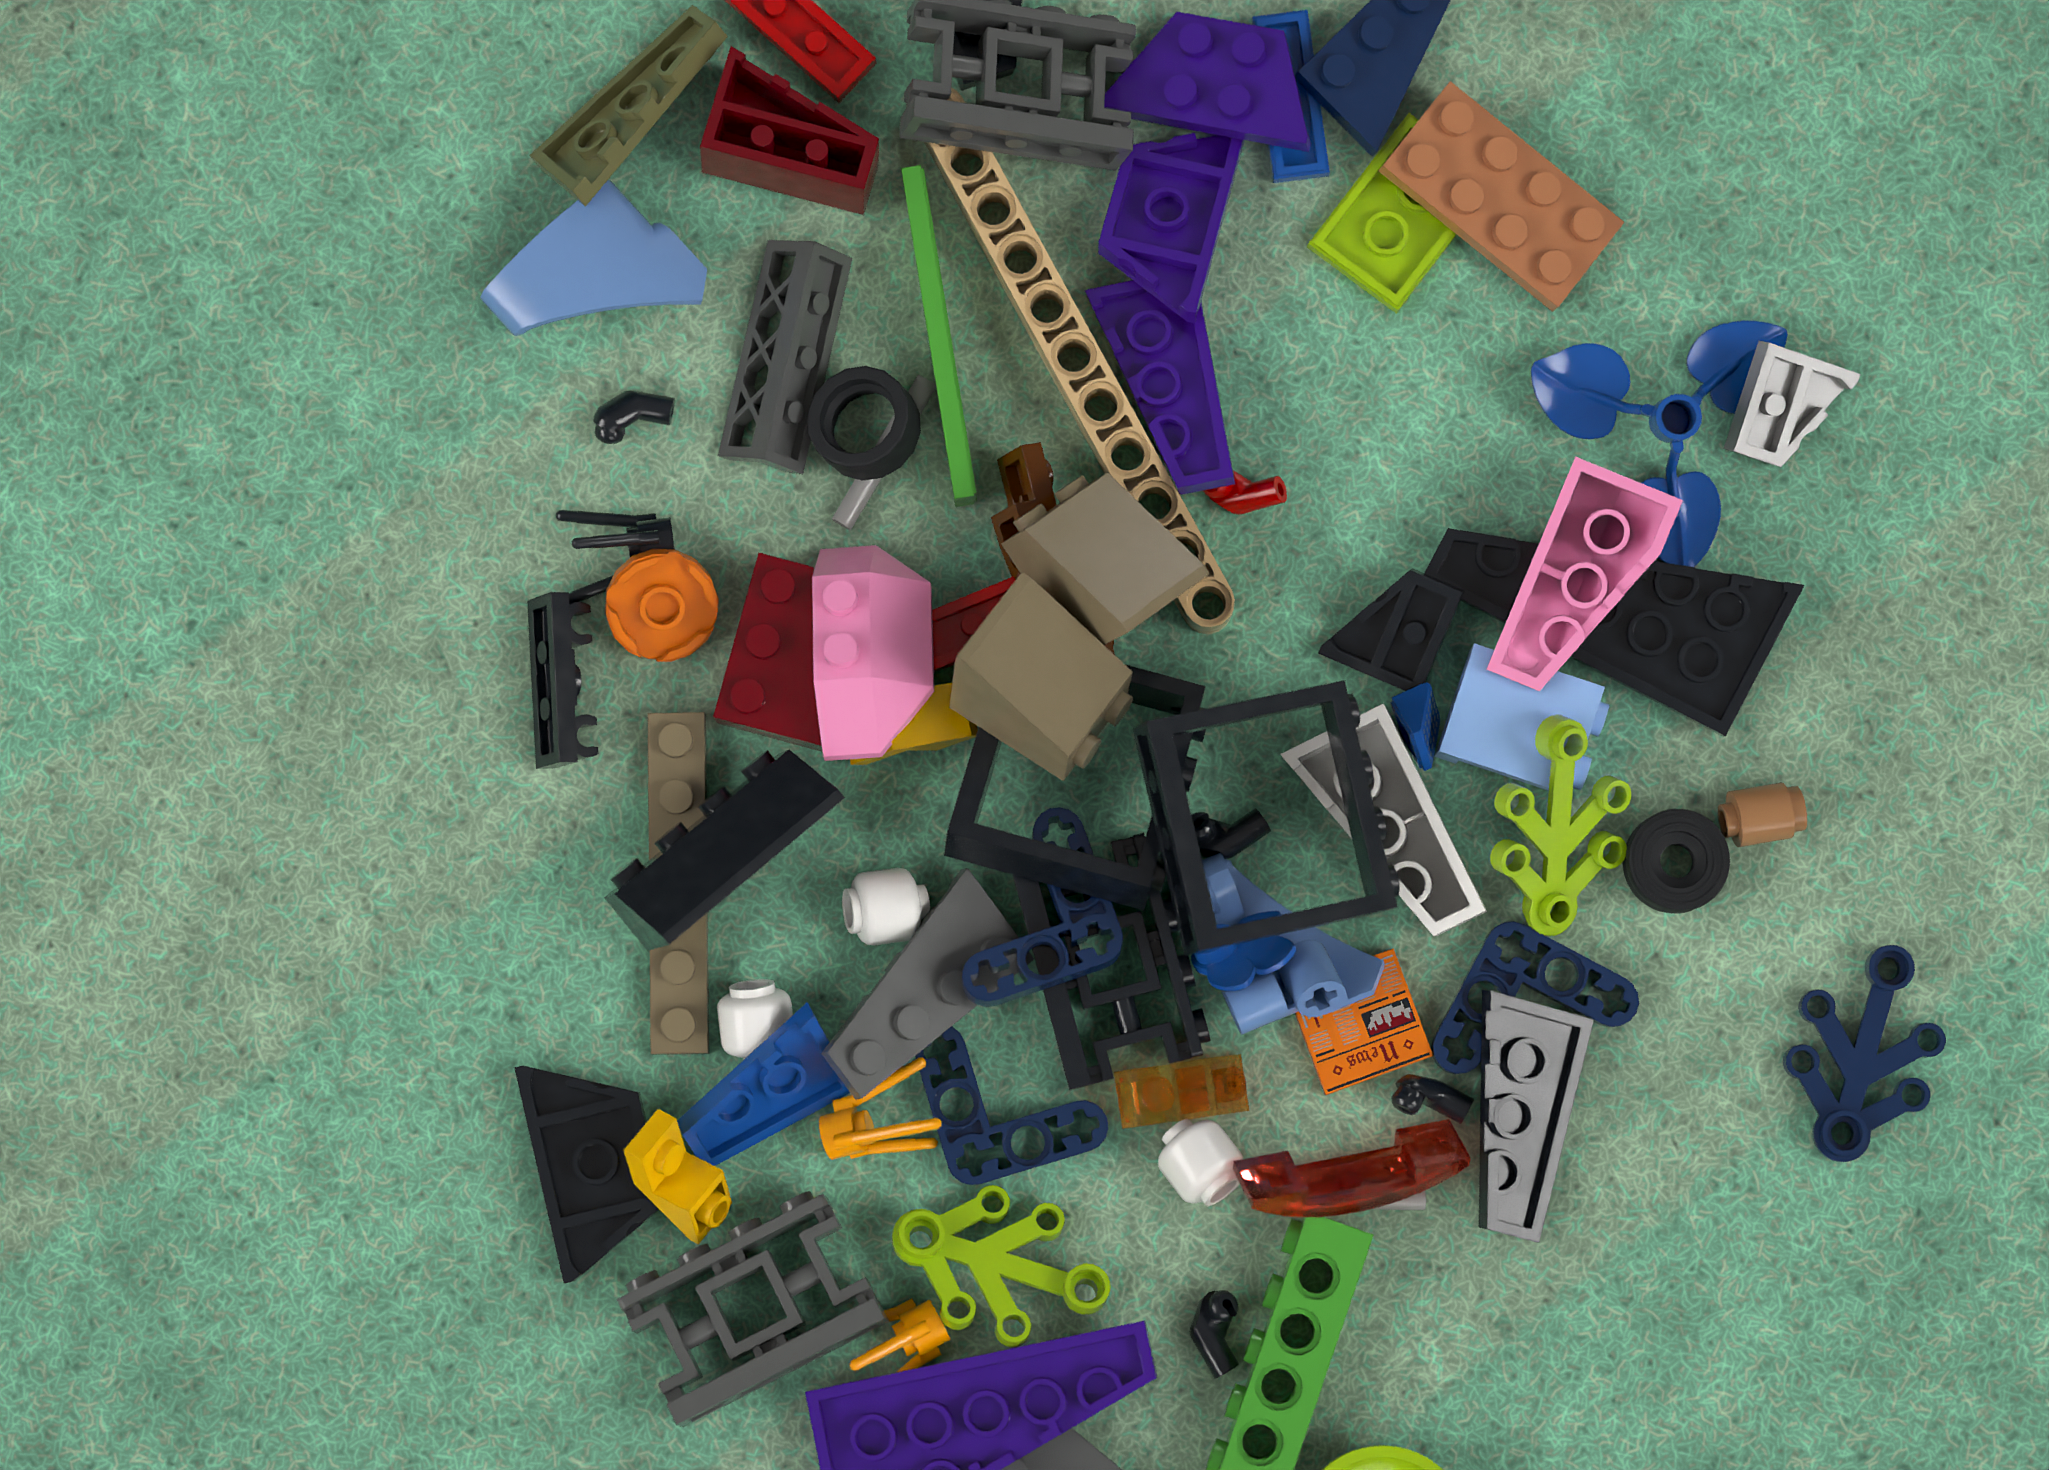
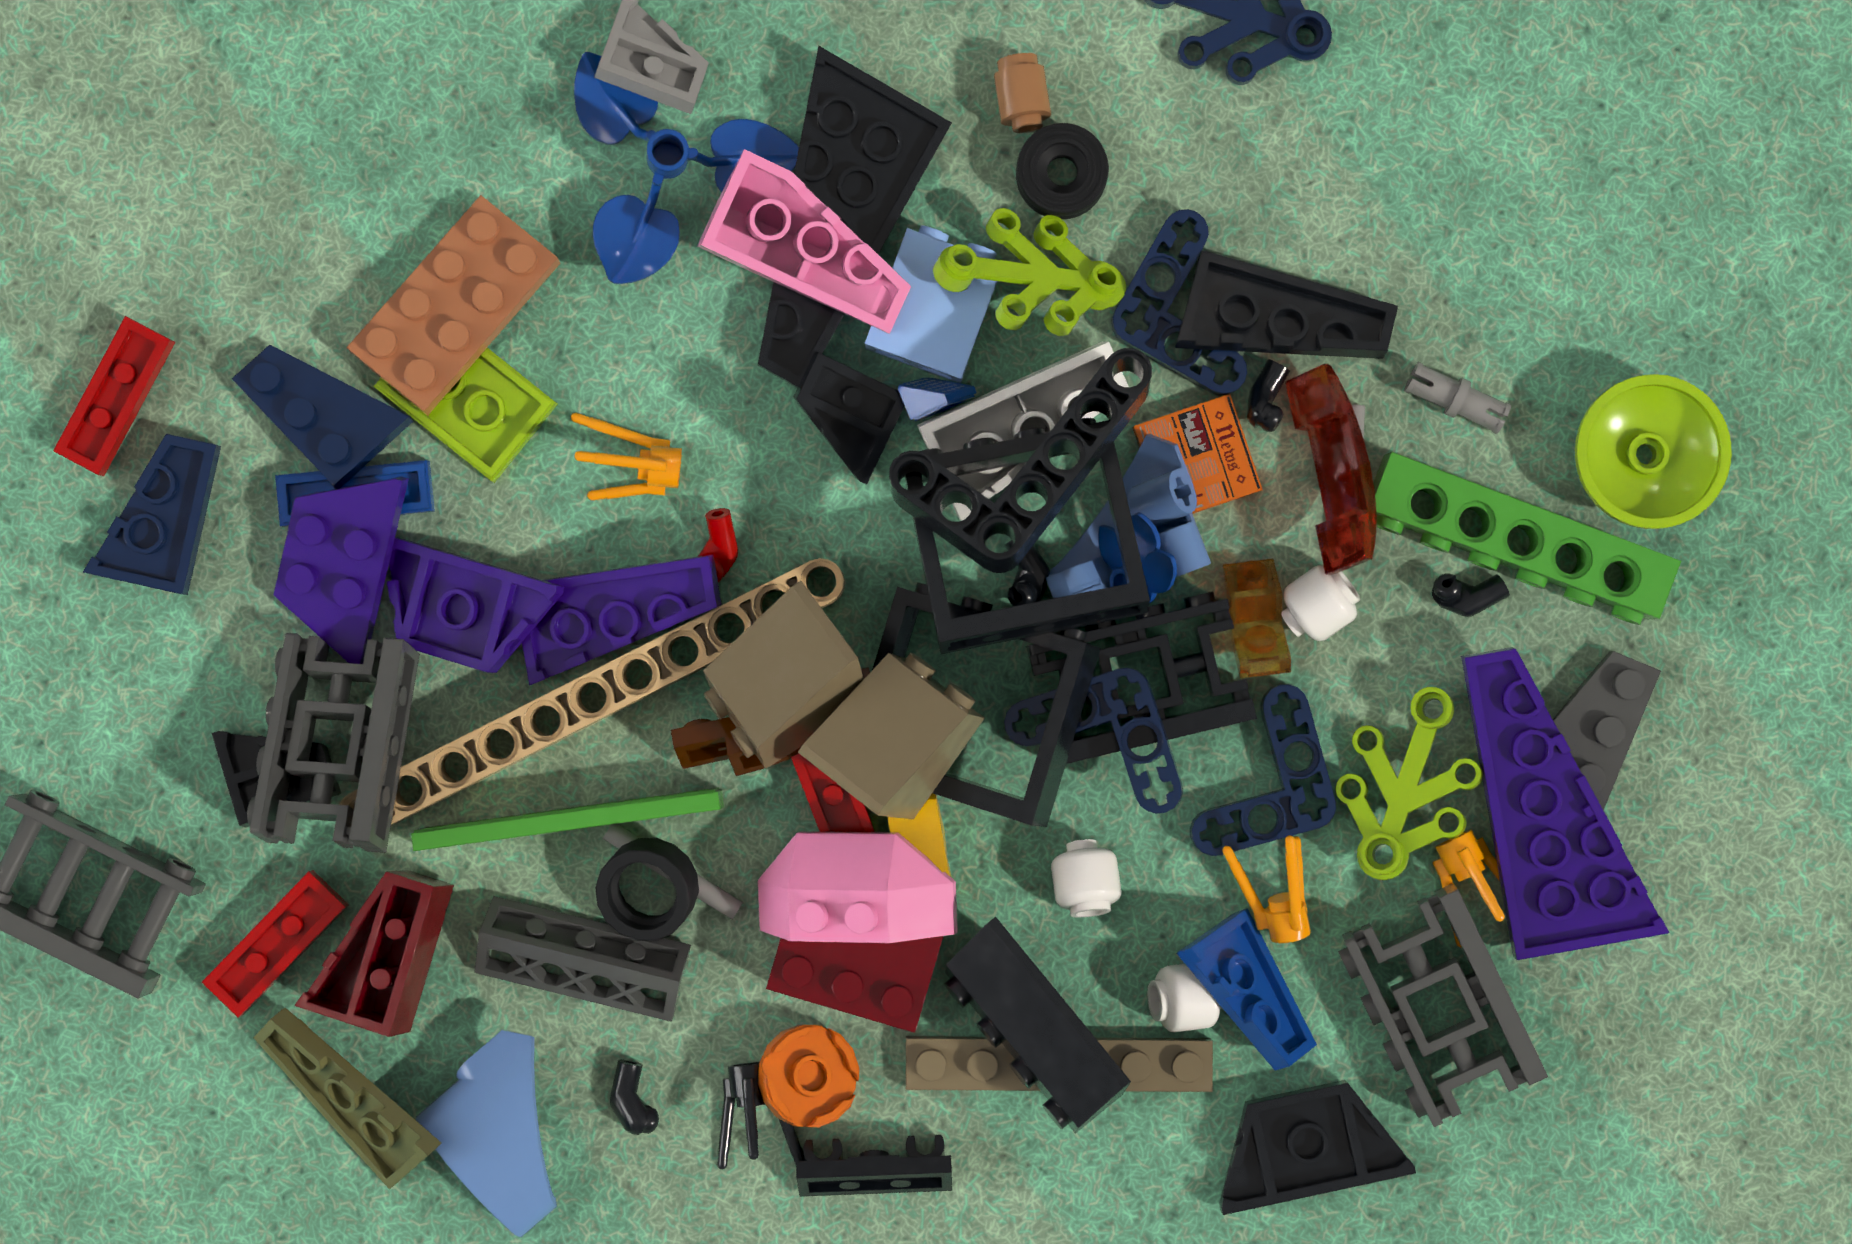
camera: 90 degrees left, 5 degrees up
(676, 1182) = (1328, 1070): yellow slope -> none
(921, 988) = (1162, 847): dark grey wing -> none
(1331, 423) = (657, 466): none -> light orange plant
(1333, 820) = (1036, 476): none -> black beam
(1437, 1314) = (1457, 397): none -> light grey pin

